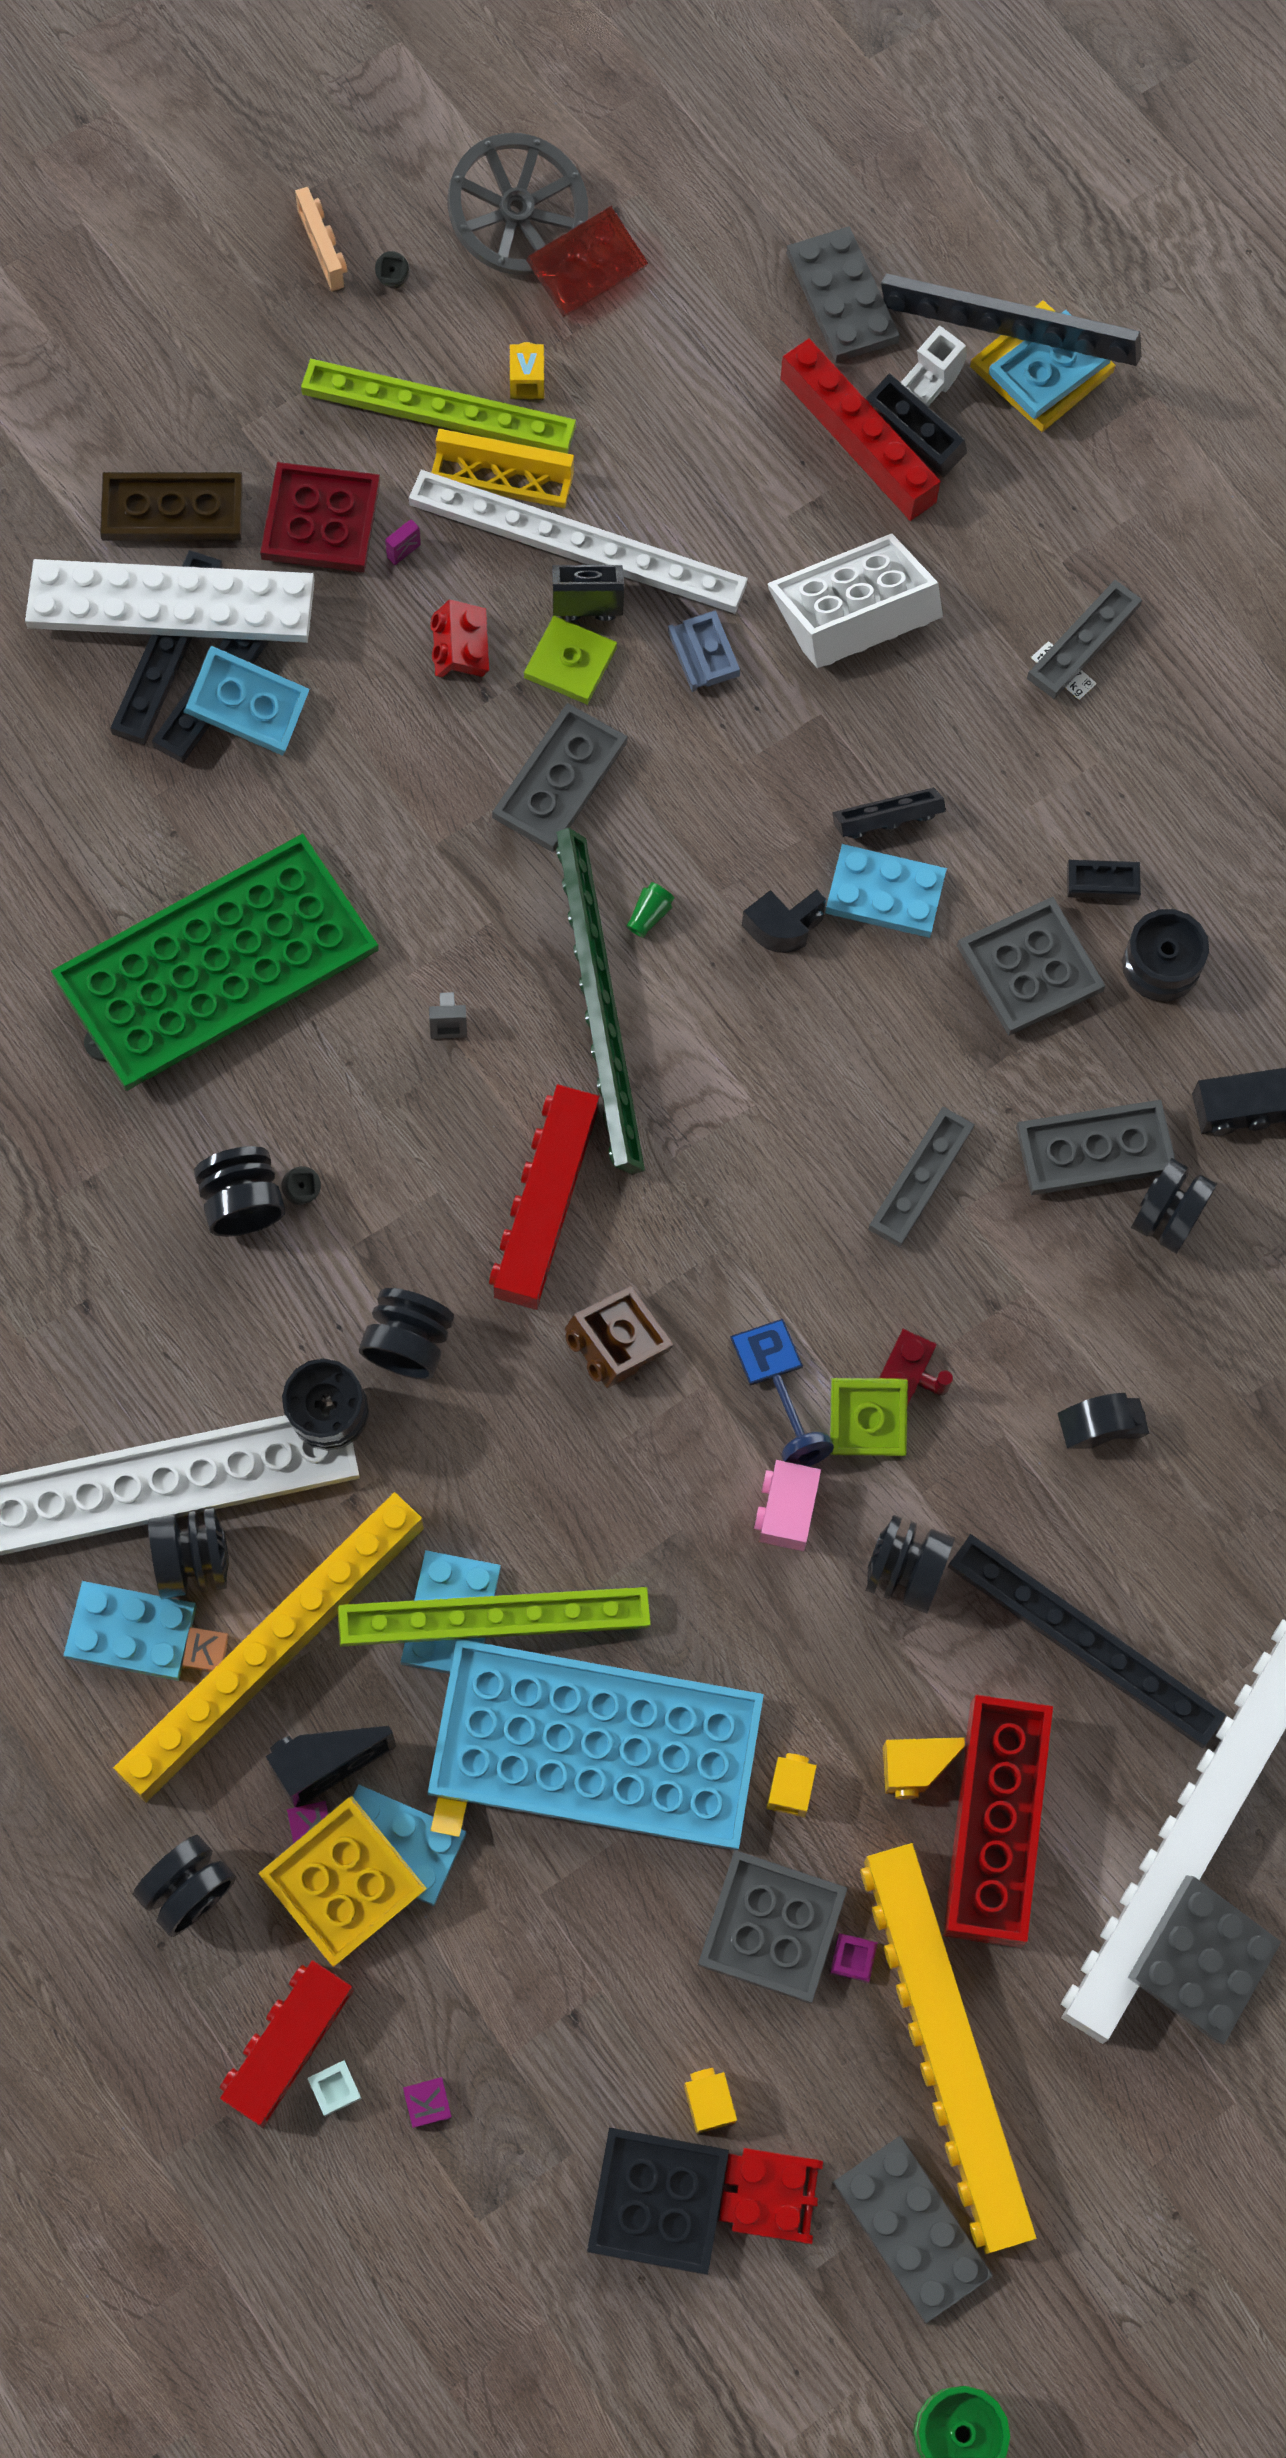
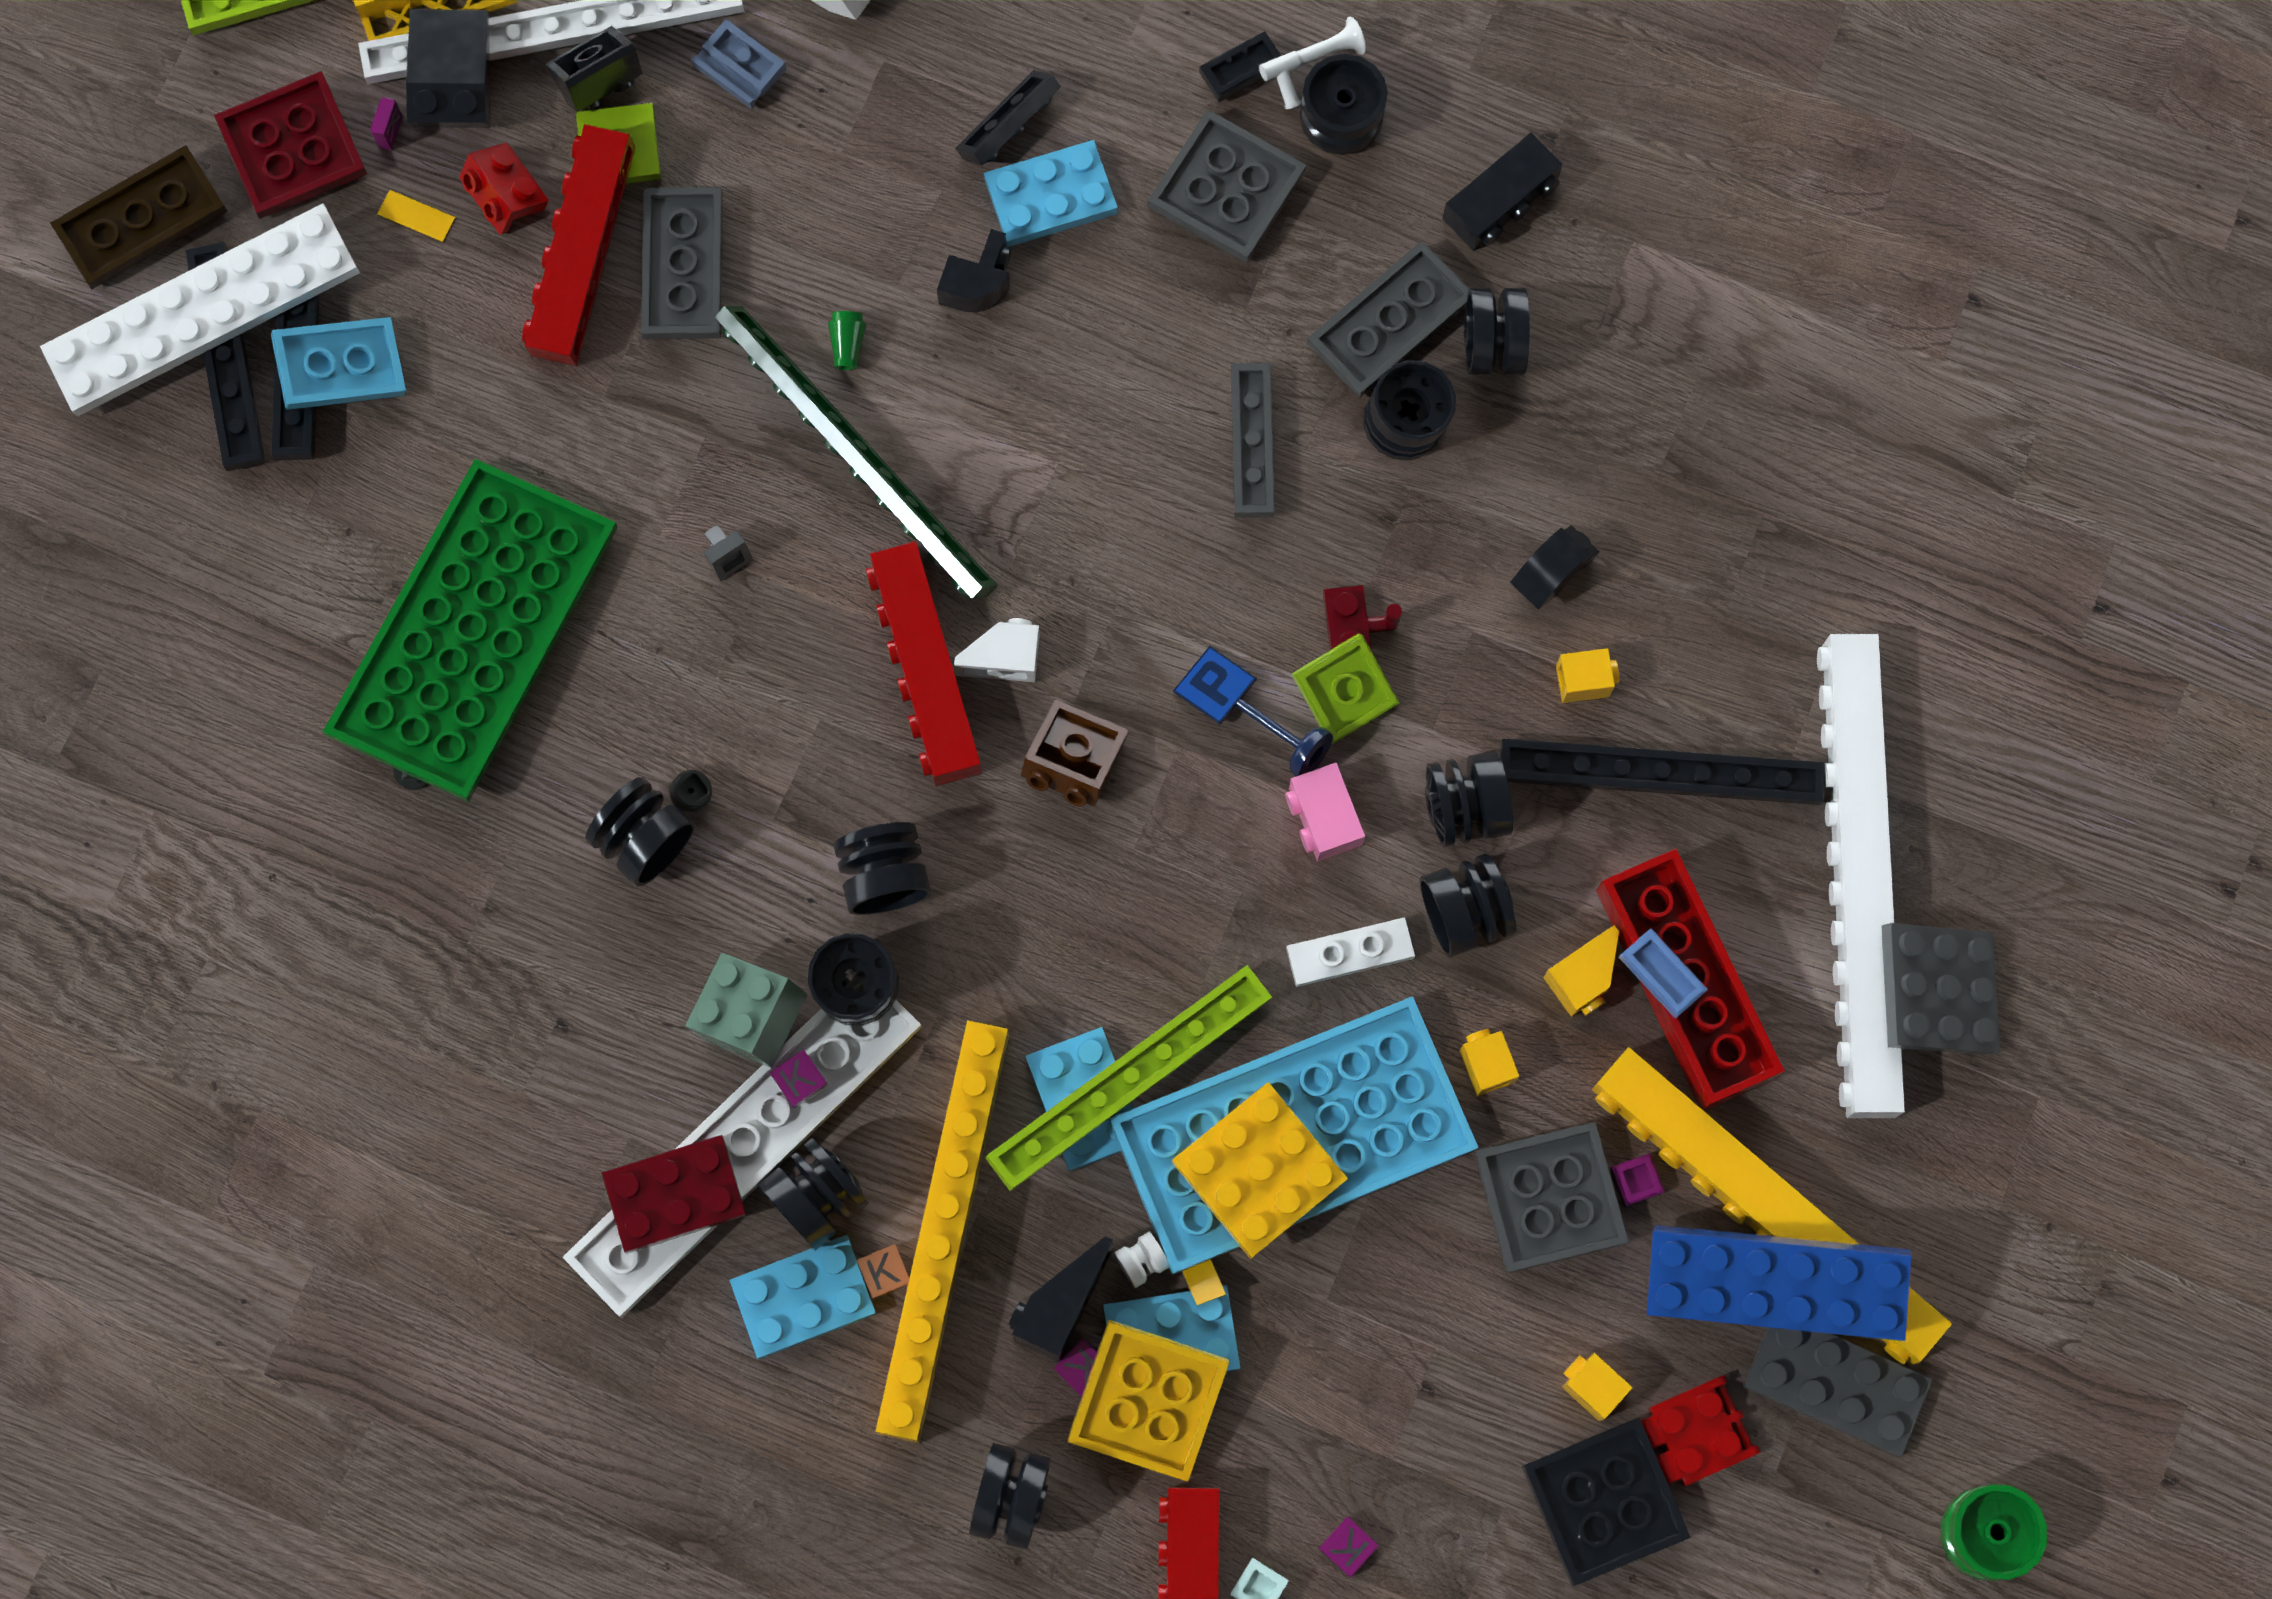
camera: 30 degrees left, 5 degrees up
(82, 1486) = (673, 1194): none -> dark red plate
(230, 1378) = (746, 1009): none -> sand green brick
(236, 1457) = (798, 1078): none -> magenta tile
(381, 625) = (416, 215): none -> yellow sticker
(411, 1768) = (1142, 1259): none -> white wheel
(475, 527) = (448, 69): none -> black slope
(488, 717) = (579, 245): none -> red brick
(548, 1754) = (1259, 1170): none -> yellow plate
(613, 1224) = (1002, 653): none -> white slope
(737, 1629) = (1350, 952): none -> white plate
(854, 1648) = (1475, 902): none -> black wheel
(912, 2111) = (1779, 1282): none -> blue brick
(976, 1799) = (1663, 973): none -> medium blue tile
(1073, 1525) = (1586, 675): none -> yellow brick
(1075, 1212) = (1412, 390): none -> black wheel
(1134, 897) = (1349, 38): none -> white piece

